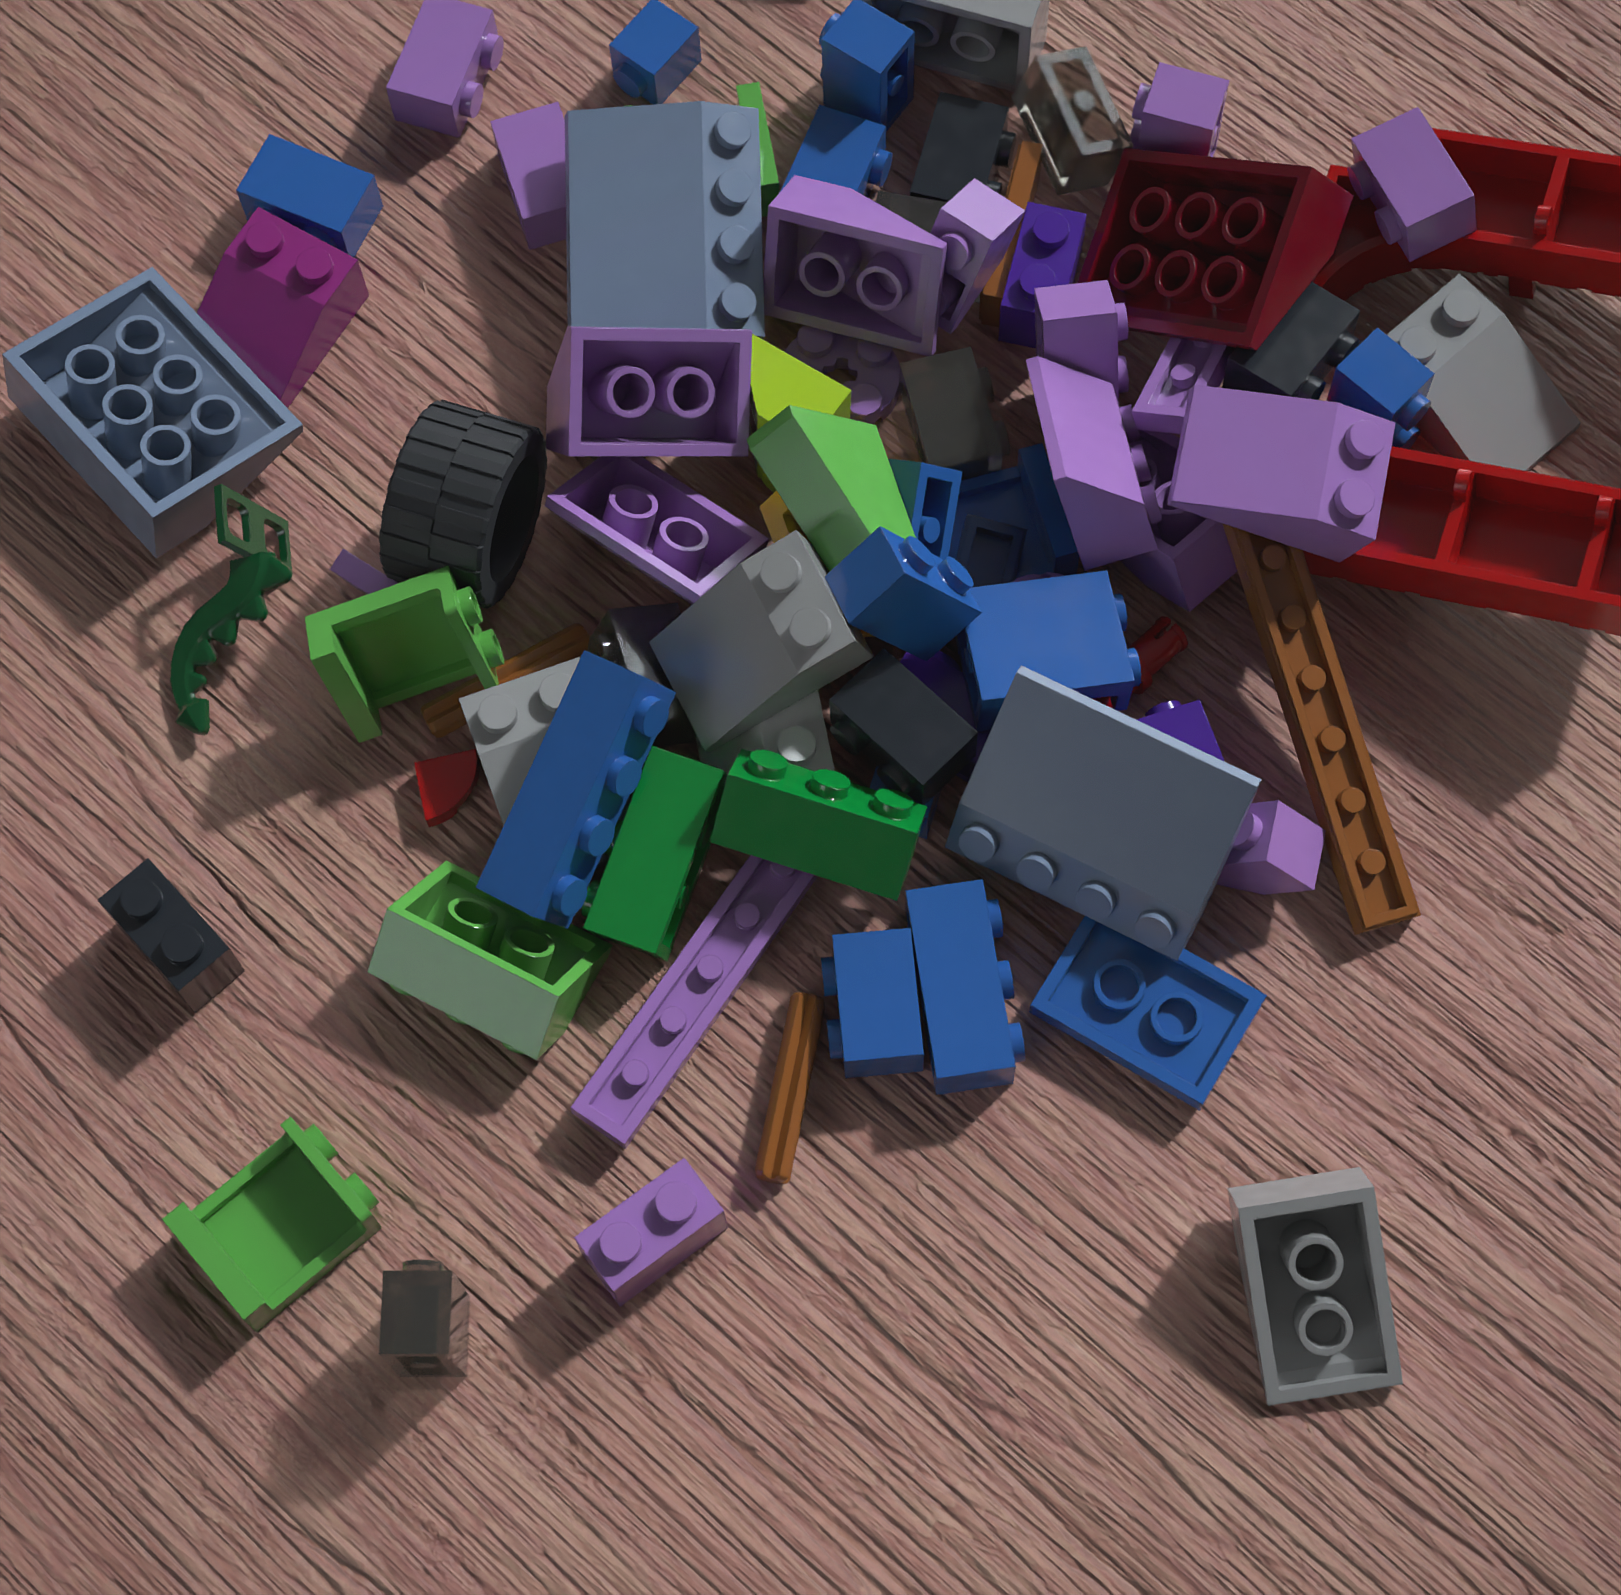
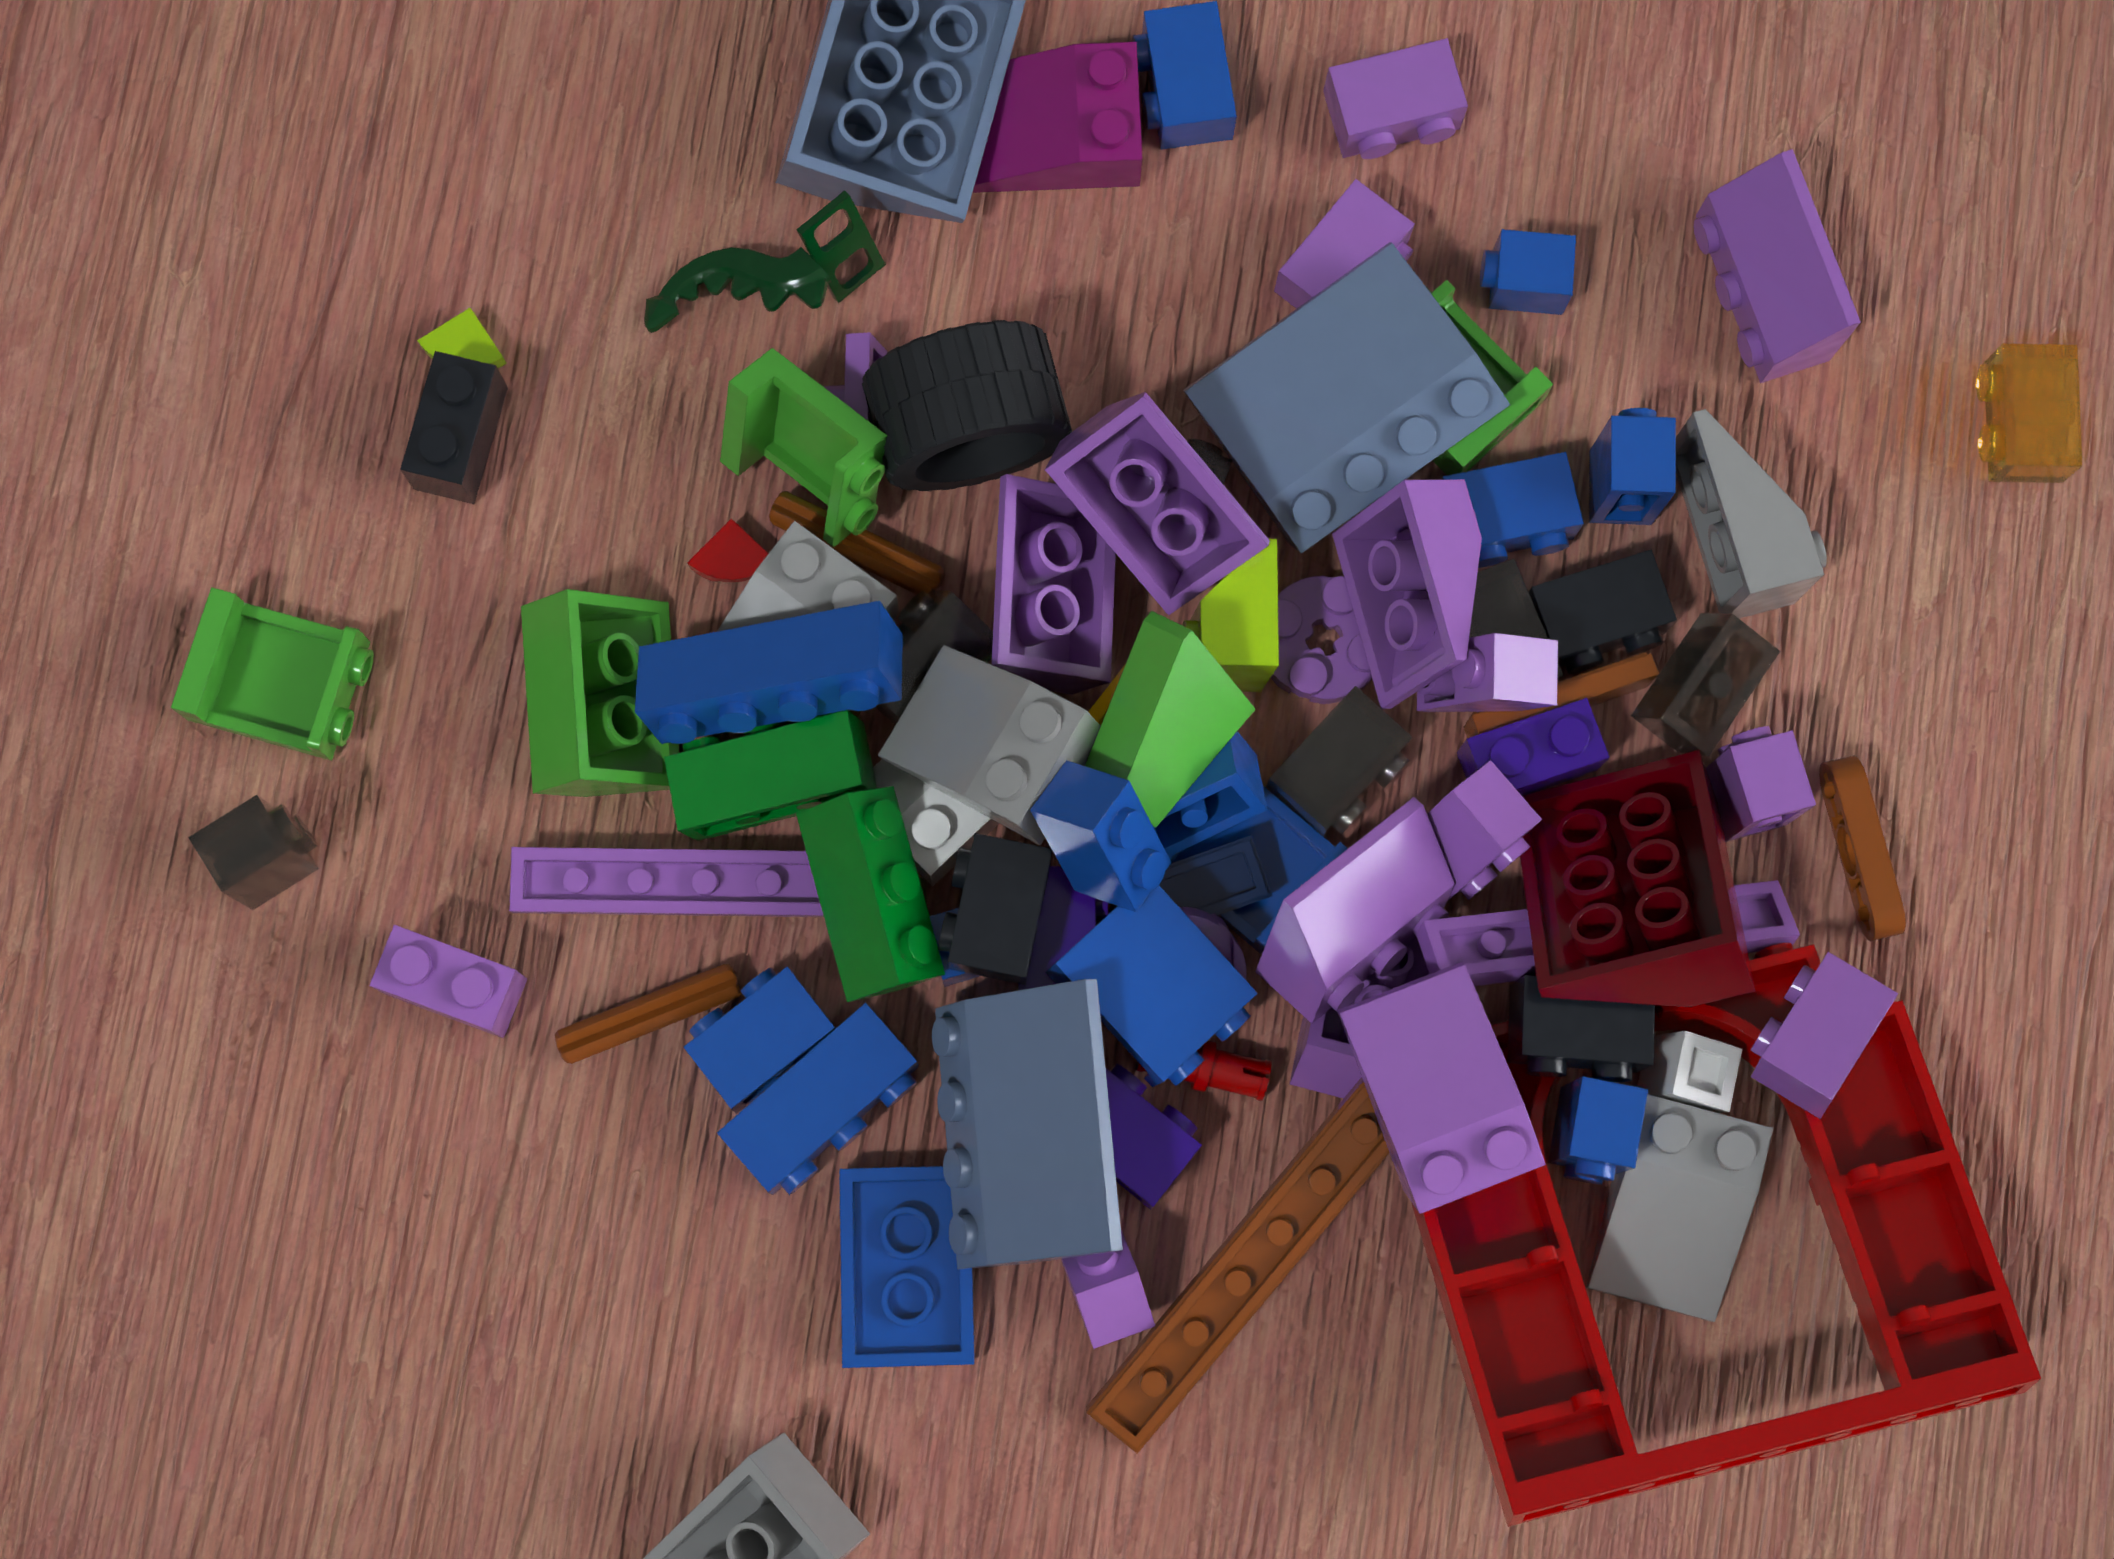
camera: 50 degrees right, 10 degrees up
(90, 884) = (463, 338): none -> lime tile
(1302, 104) = (1862, 848): none -> dark orange beam
(1382, 299) = (1692, 1071): none -> white panel

